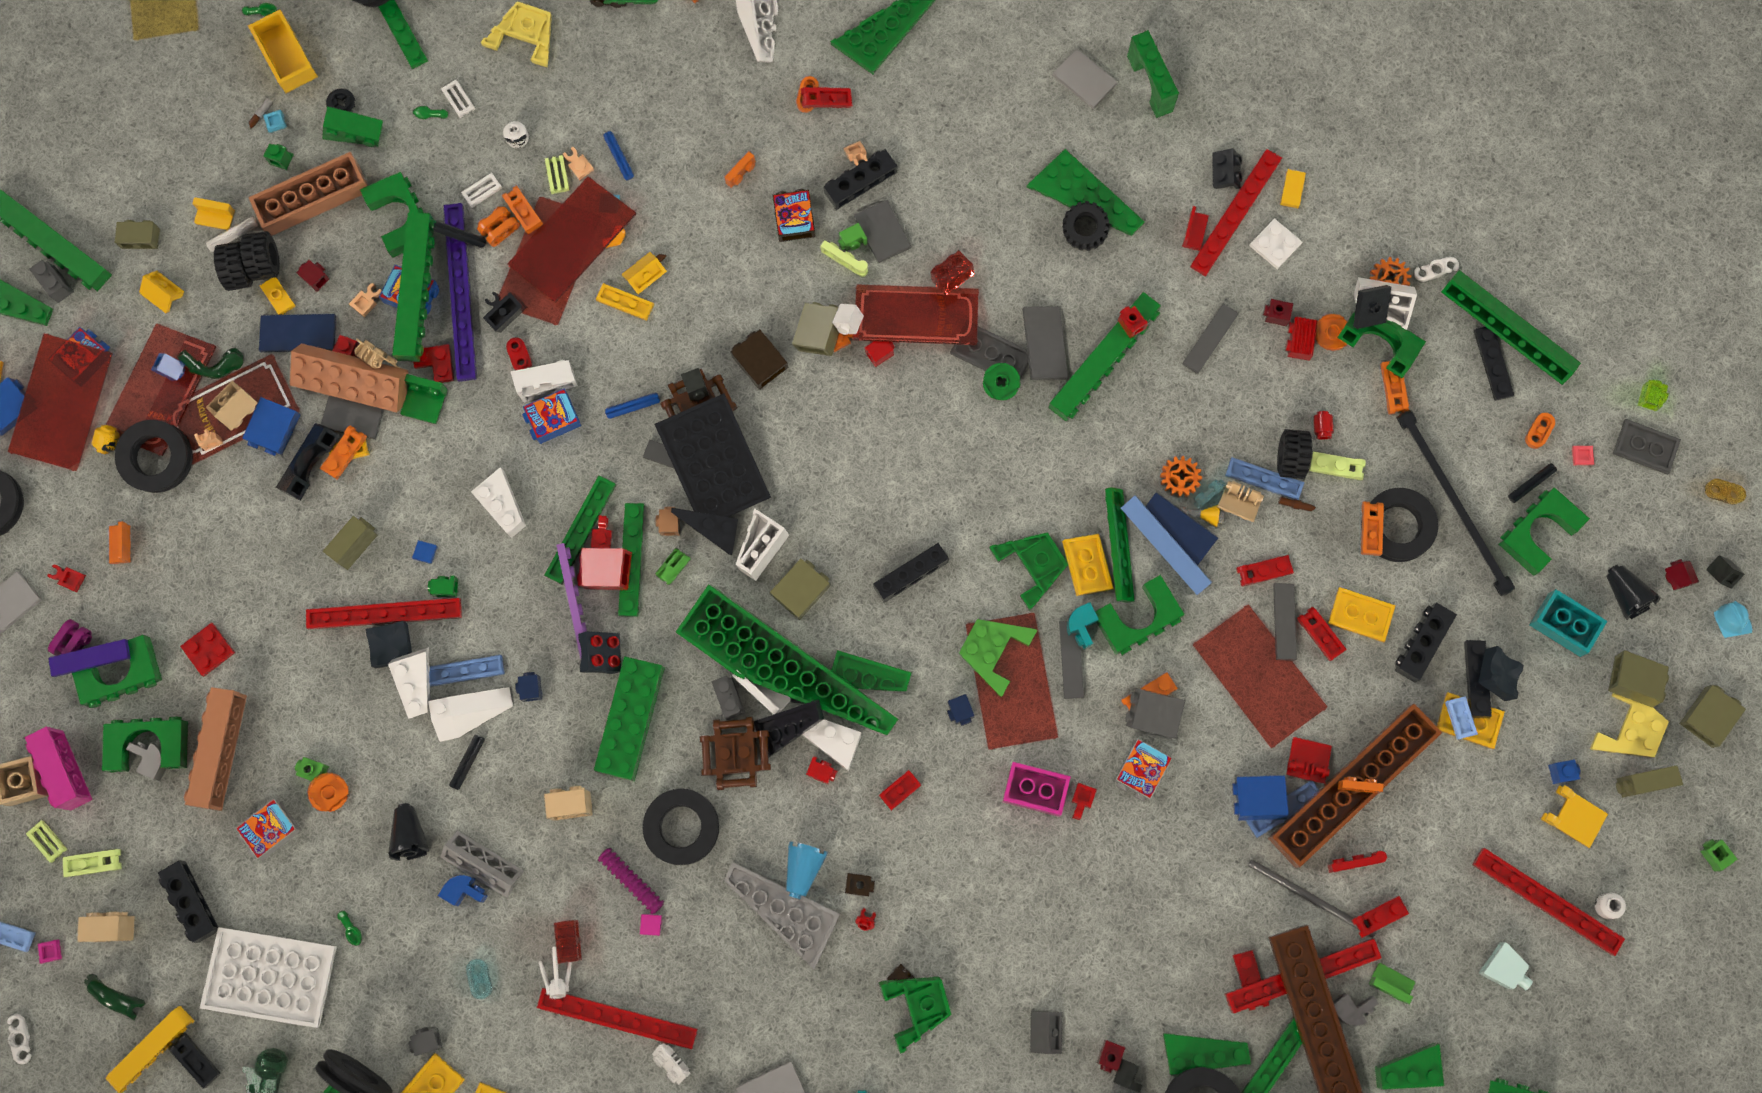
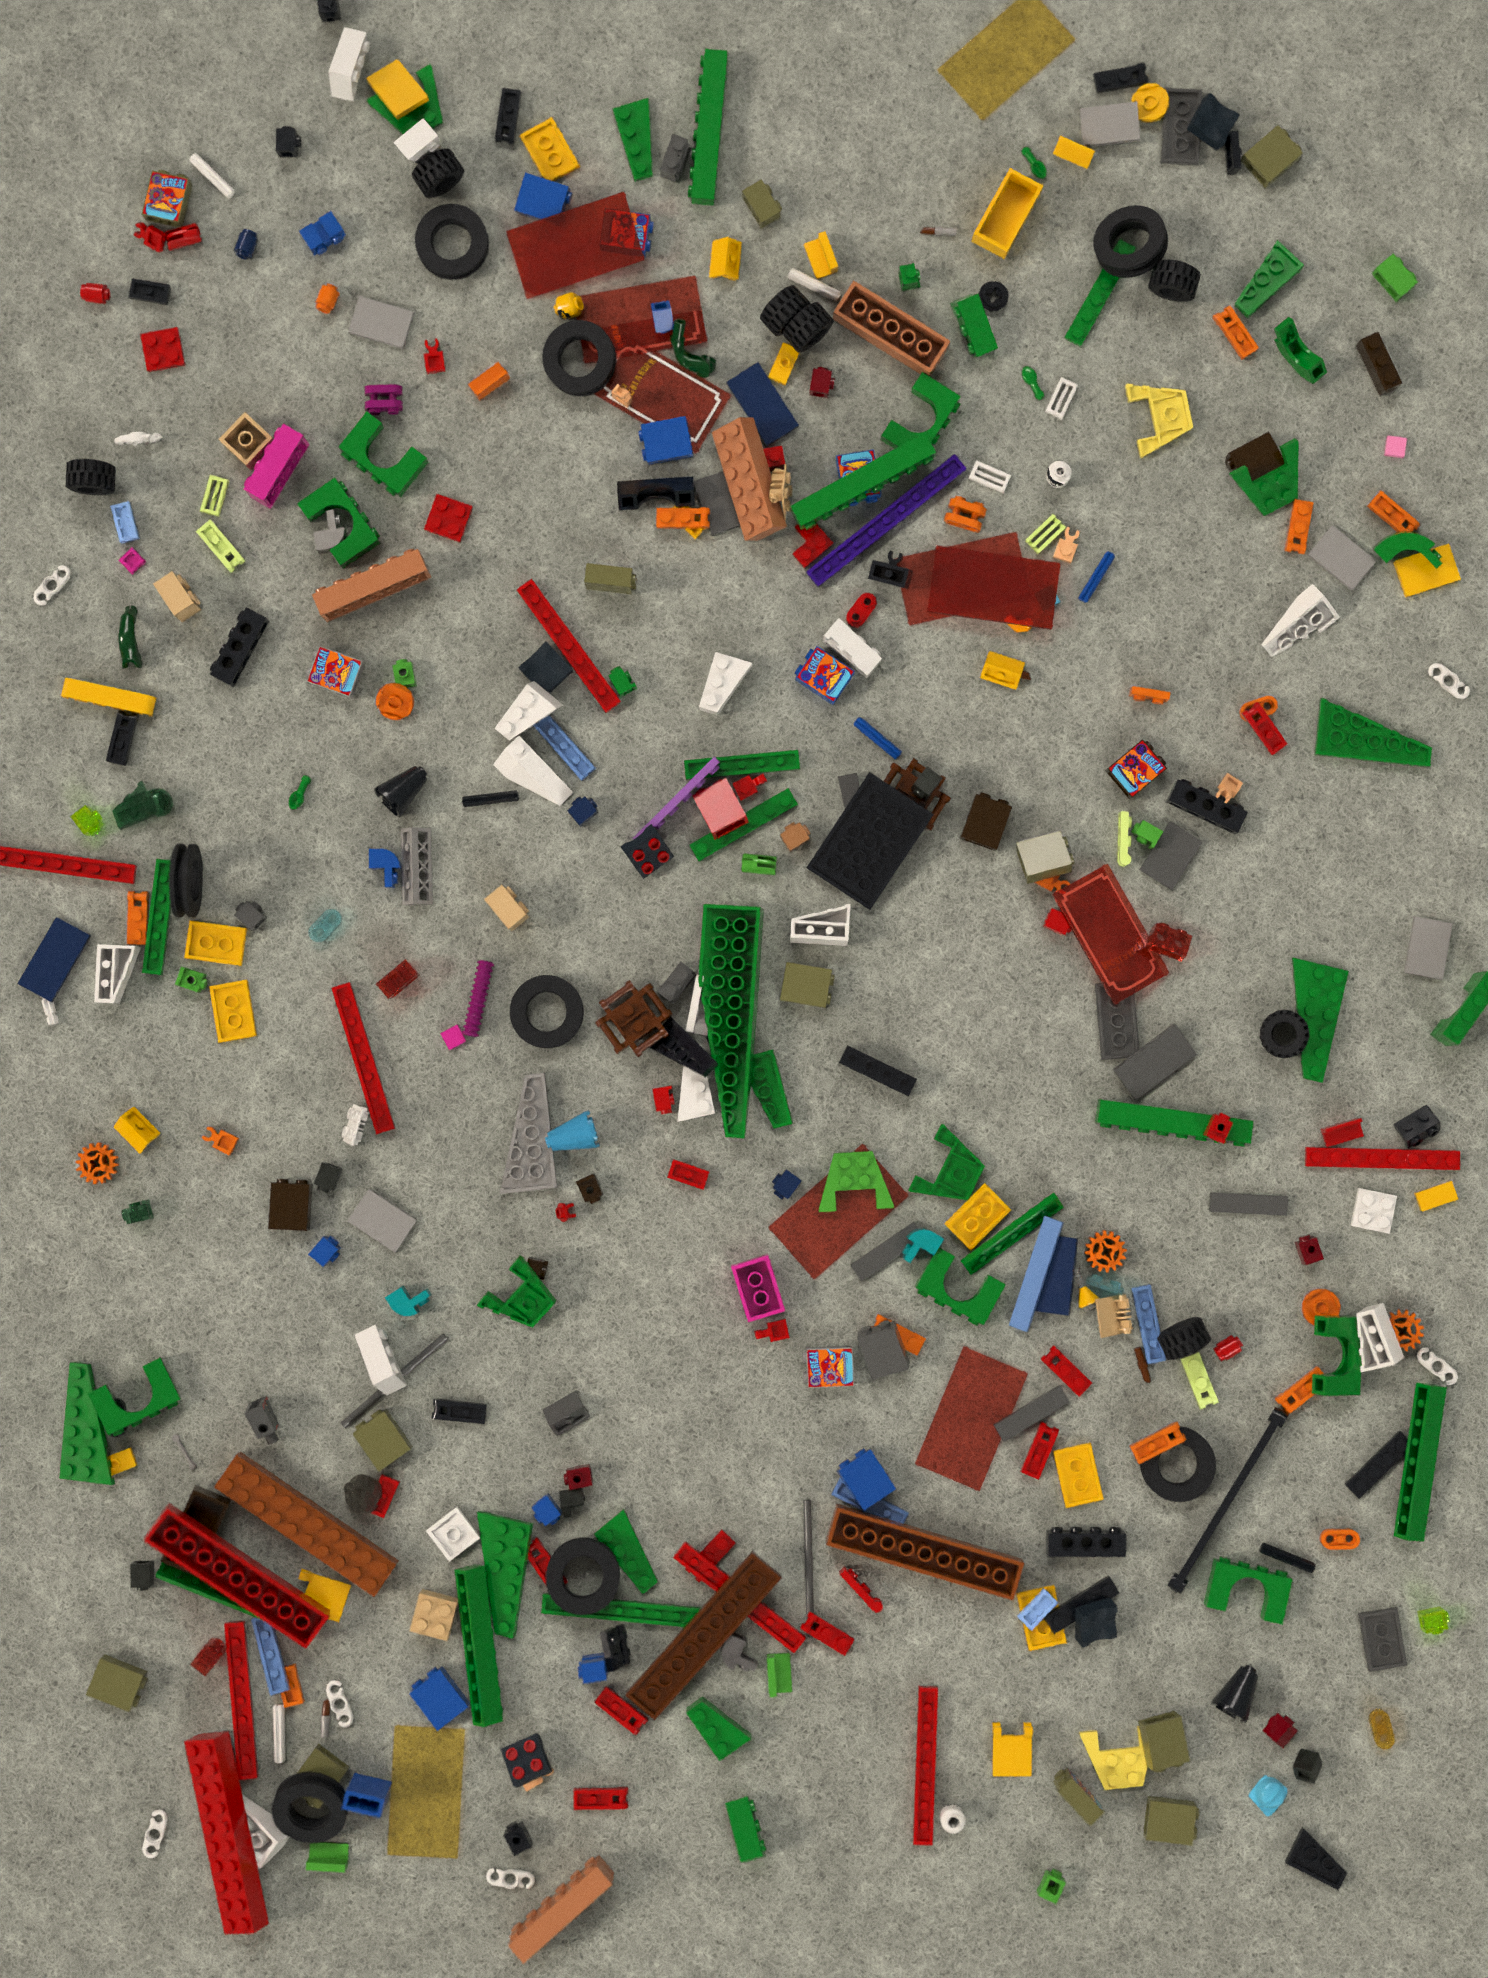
camera: 55 degrees right, 10 degrees up
(89, 658) = (379, 427): dark purple tile -> none
(232, 405) = (662, 396): tan brick -> none
(268, 977) = (221, 753): white plate -> none
(275, 121) = (940, 249): medium azure tile -> none
(364, 302) = (824, 444): light nougat plate -> none
(423, 399) = (770, 555): green bracket -> none
(424, 552) = (641, 644): blue tile -> none
(459, 234) = (935, 488): black axle -> none
(522, 210) = (993, 526): orange plate -> none
(557, 988) = (356, 995): white plant -> none
(624, 301) = (966, 670): yellow tile -> none
(629, 719) = (608, 911): green brick -> none
(716, 528) = (813, 879): black wing -> none
(848, 319) = (1067, 878): white brick -> none
(991, 378) = (1084, 1046): green plate -> none
(1302, 338) = (1297, 1284): red brick -> none
(1309, 760) = (923, 1501): red hinge -> none
(1352, 784) = (928, 1564): orange plate -> none
(1372, 306) = (1358, 1331): black plate -> none
(1506, 968) = (848, 1760): light aqua torso -> none
(1564, 771) = (1044, 1721): blue brick -> none
(1568, 623) = (1177, 1655): teal brick -> none
(1583, 455) = (1340, 1588): coral tile -> none

